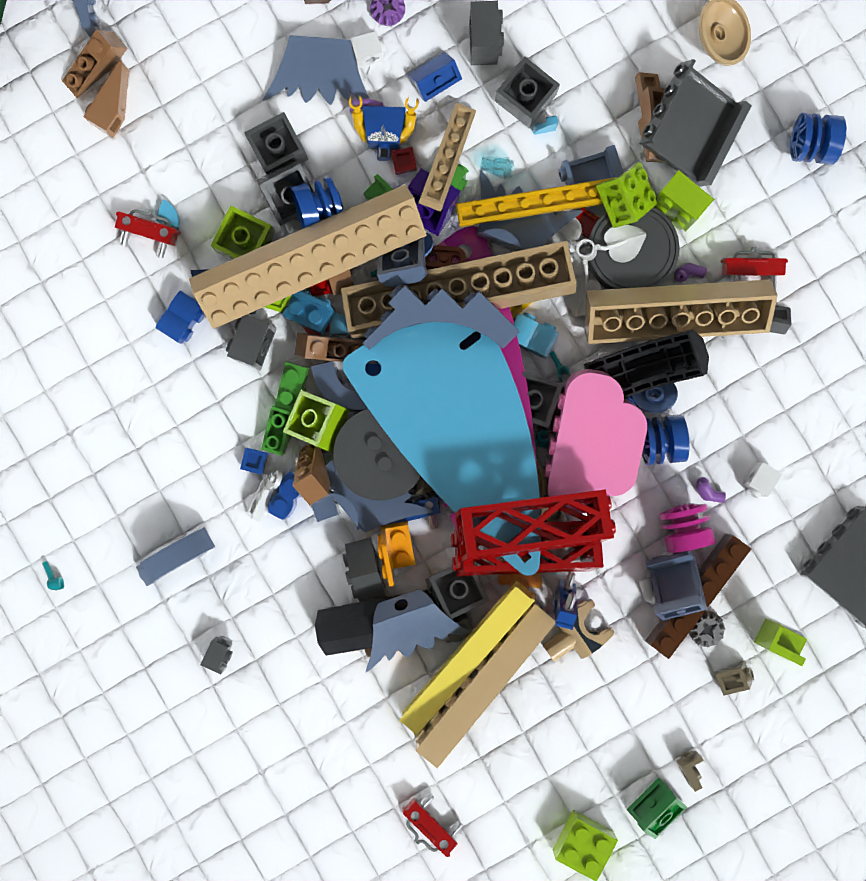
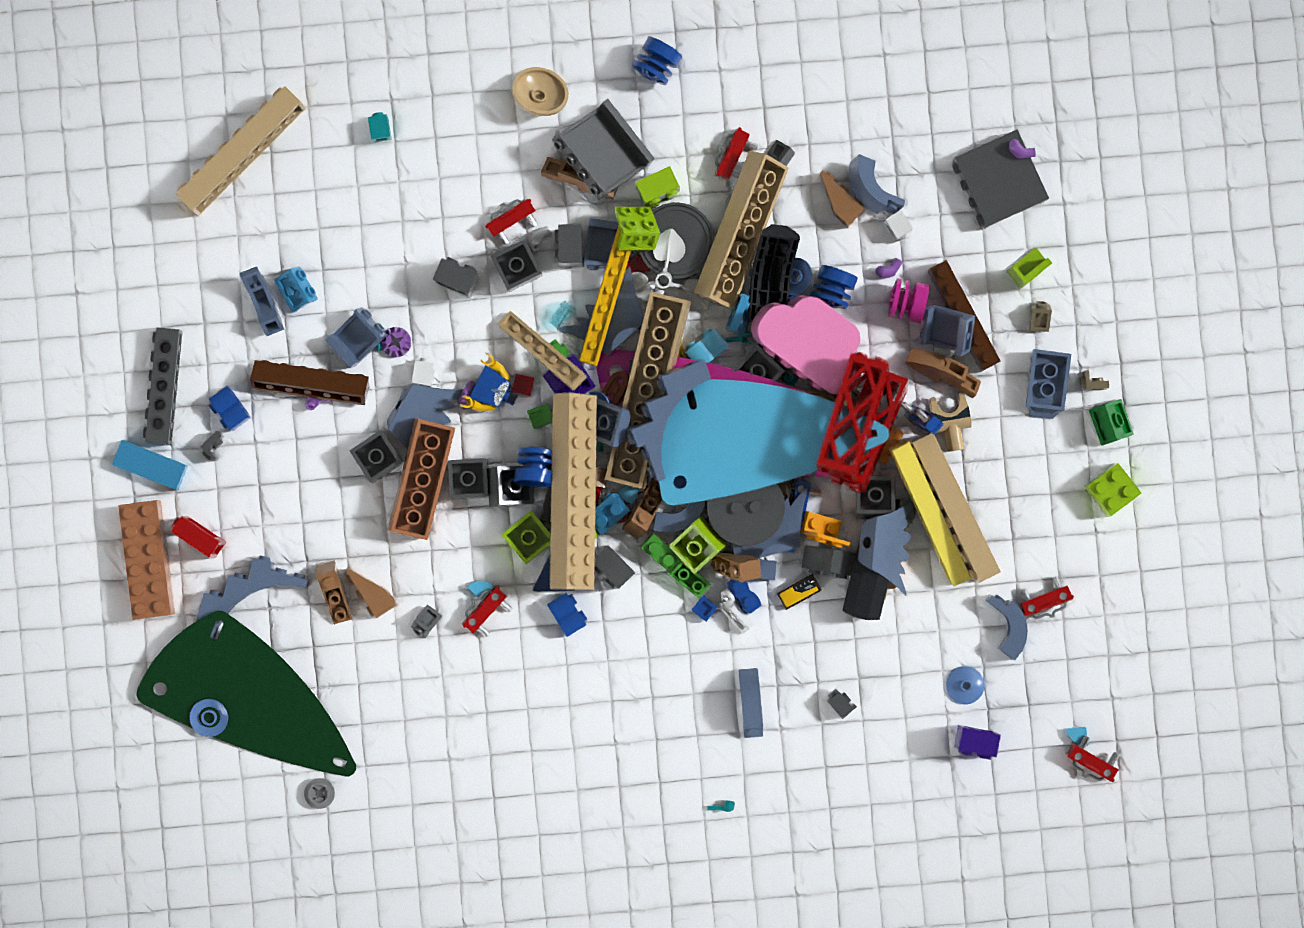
camera: 70 degrees left, 0 degrees up
(107, 173) = (426, 621): none -> dark grey bracket
(241, 824) = (978, 741): none -> dark purple brick
(251, 94) = (421, 479): none -> nougat brick
(255, 39) = (376, 456): none -> dark grey brick
(303, 768) = (955, 683): none -> medium blue dish
(318, 554) = (799, 591): none -> slope
(383, 810) = (1017, 626): none -> sand blue arch
(435, 76) = (467, 330): blue panel -> none
(549, 126) = (547, 262): medium azure tile -> none
(567, 102) = (536, 238): none -> white arm
(575, 65) = (510, 217): none -> red piece
(575, 136) = (570, 245): none -> dark grey brick
(579, 354) = (738, 317): none -> dark azure bracket
(631, 599) = (941, 367): none -> medium nougat slope
(668, 720) = (1047, 383): none -> sand blue slope
(687, 270) = (711, 206): medium lavender arm -> none
(717, 631) = (999, 313): light grey gear -> none
(756, 409) = (842, 204): none -> medium nougat slope
(786, 429) = (867, 189): none -> sand blue arch

